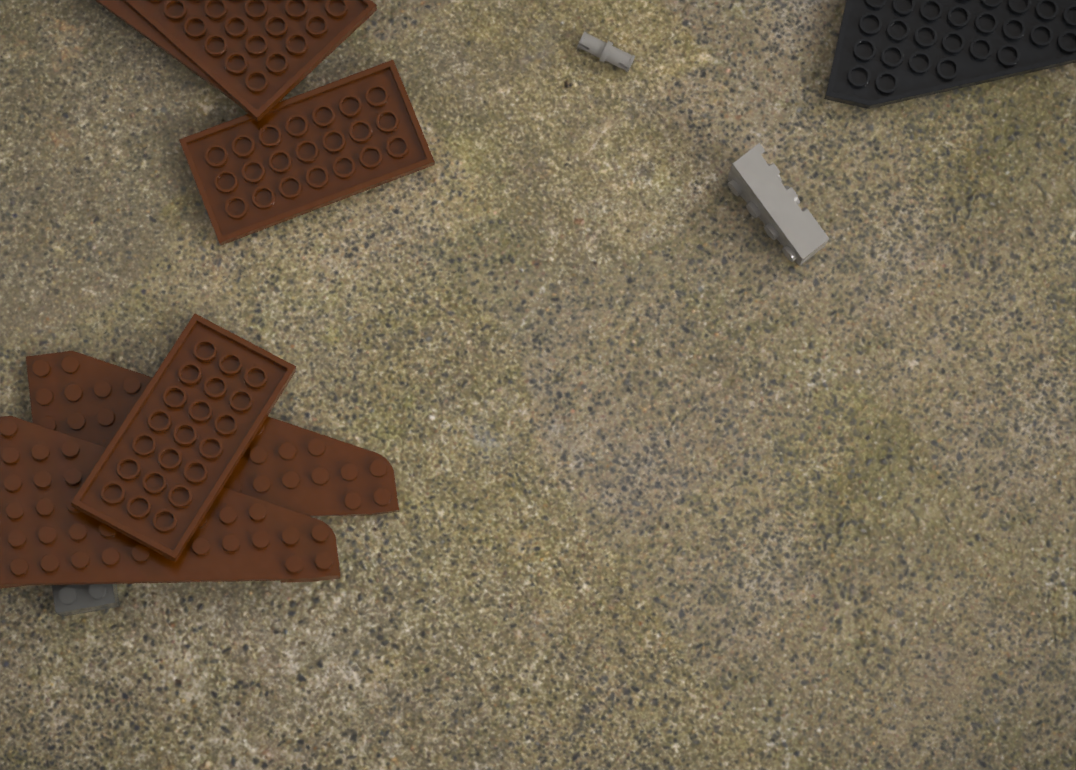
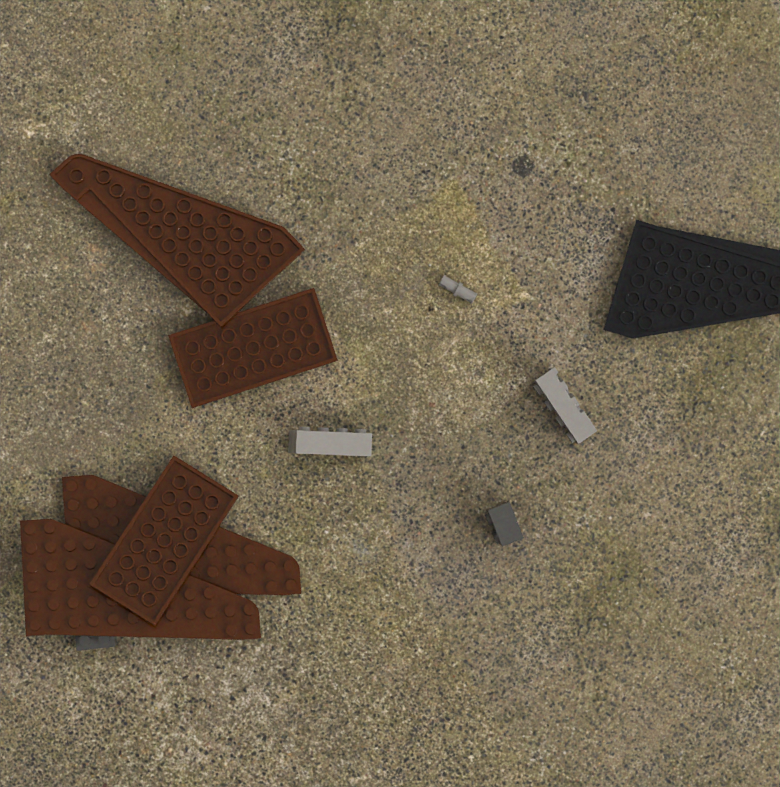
camera: 10 degrees right, 10 degrees up
(429, 279) = (330, 443): none -> light grey wedge
(701, 383) = (504, 524): none -> dark grey brick

